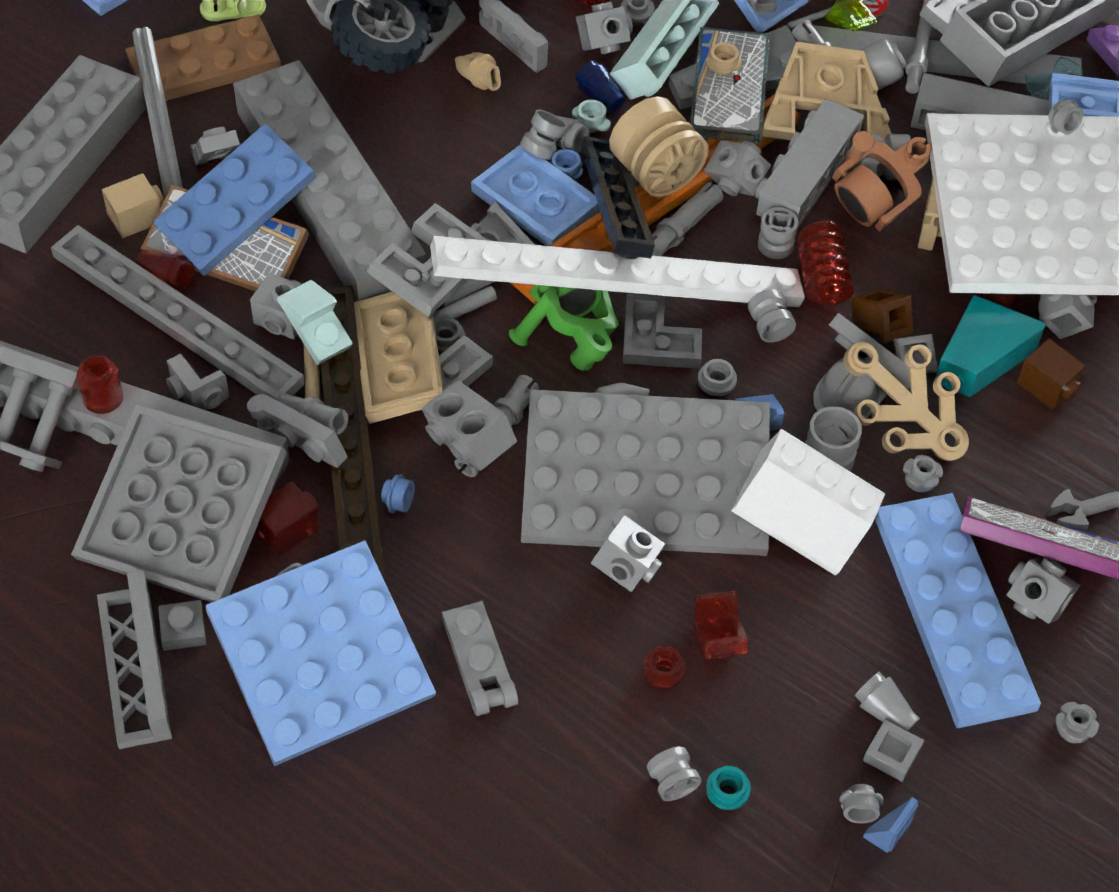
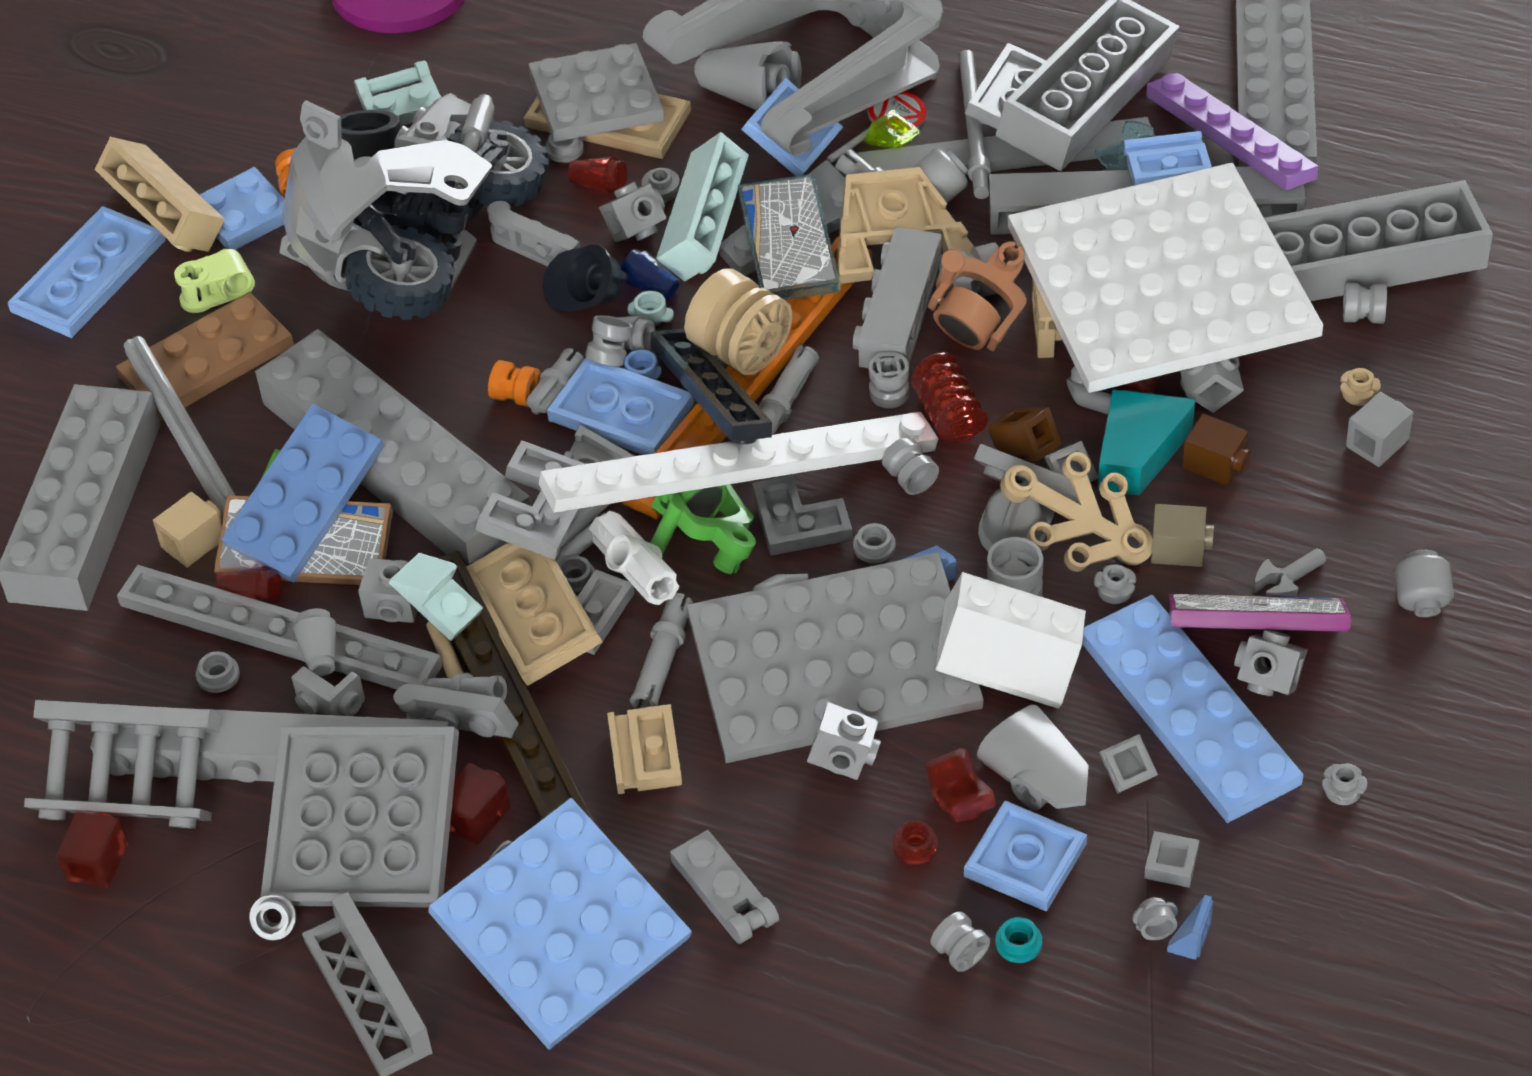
camera: 10 degrees left, 5 degrees down
(65, 572) = (263, 926): none -> plate
(99, 384) = (235, 717): clear red brick -> none
(111, 338) = (215, 664): none -> light grey plate
(182, 625) = (403, 939): light grey plate -> none
(200, 332) = (316, 638): none -> light grey cone
(214, 144) = (259, 442): light grey plate -> none
(398, 493) = (582, 748): medium blue plate -> none
(452, 151) = (512, 382): none -> orange wheel
(452, 510) = (645, 749): none -> tan plate
(468, 425) = (635, 657): light grey brick -> none
(480, 70) = (513, 290): tan piece -> none
(486, 157) = (553, 381): none -> light grey axle
(500, 334) = (634, 558): none -> white piece
(541, 75) = (582, 279): none -> black piece
(724, 58) = (775, 212): tan plate -> none
(737, 167) = (825, 322): light grey brick -> none
(760, 708) = (1025, 855): none -> light blue plate
(798, 621) = (1036, 760): none -> light grey panel
(881, 646) = (1128, 763): none -> light grey slope
(885, 702) = (1147, 814): light grey cone -> none
(957, 301) = (1095, 400): none -> light grey arm
(995, 445) = (1180, 535): none -> dark tan brick
(1065, 116) = (1152, 182): light grey plate -> none

